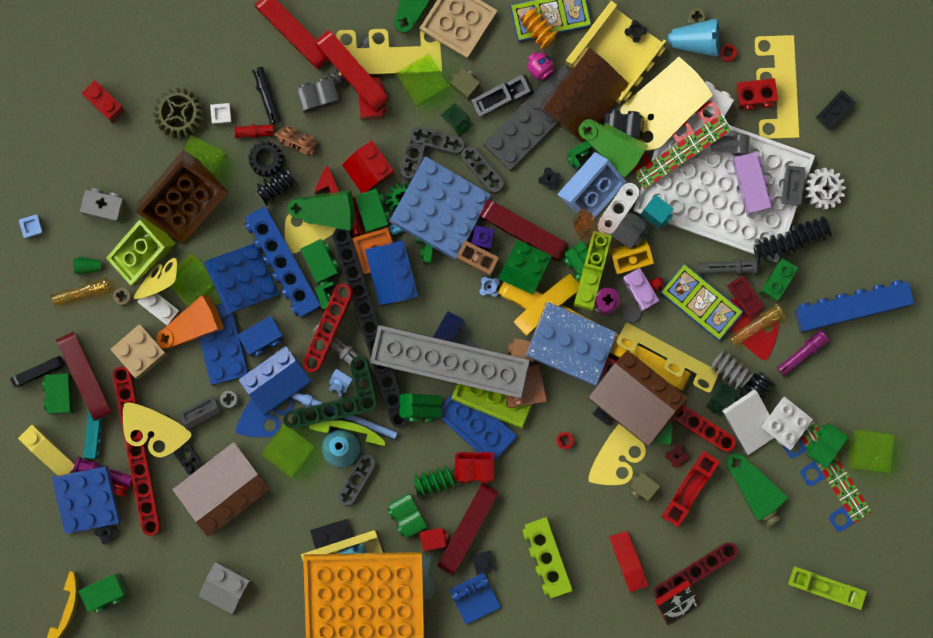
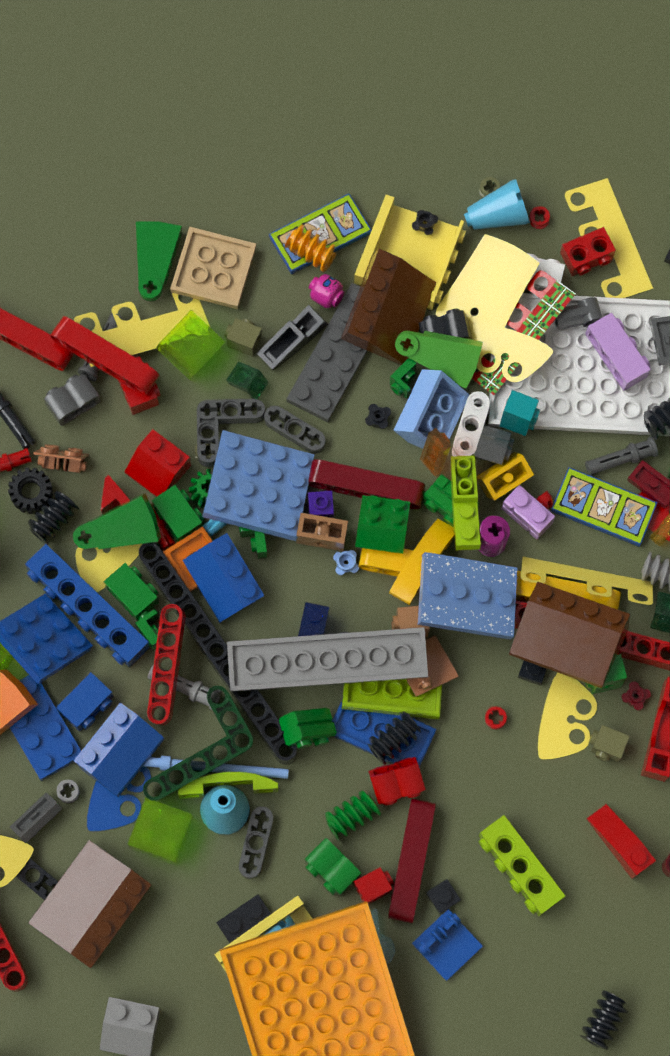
camera: 20 degrees left, 10 degrees down
(340, 382) = (200, 727): light blue plate -> none
(481, 434) = (393, 737): none -> black piece
(631, 313) = (524, 544): dark grey piece -> none
(675, 157) = (520, 348): none -> light yellow piece

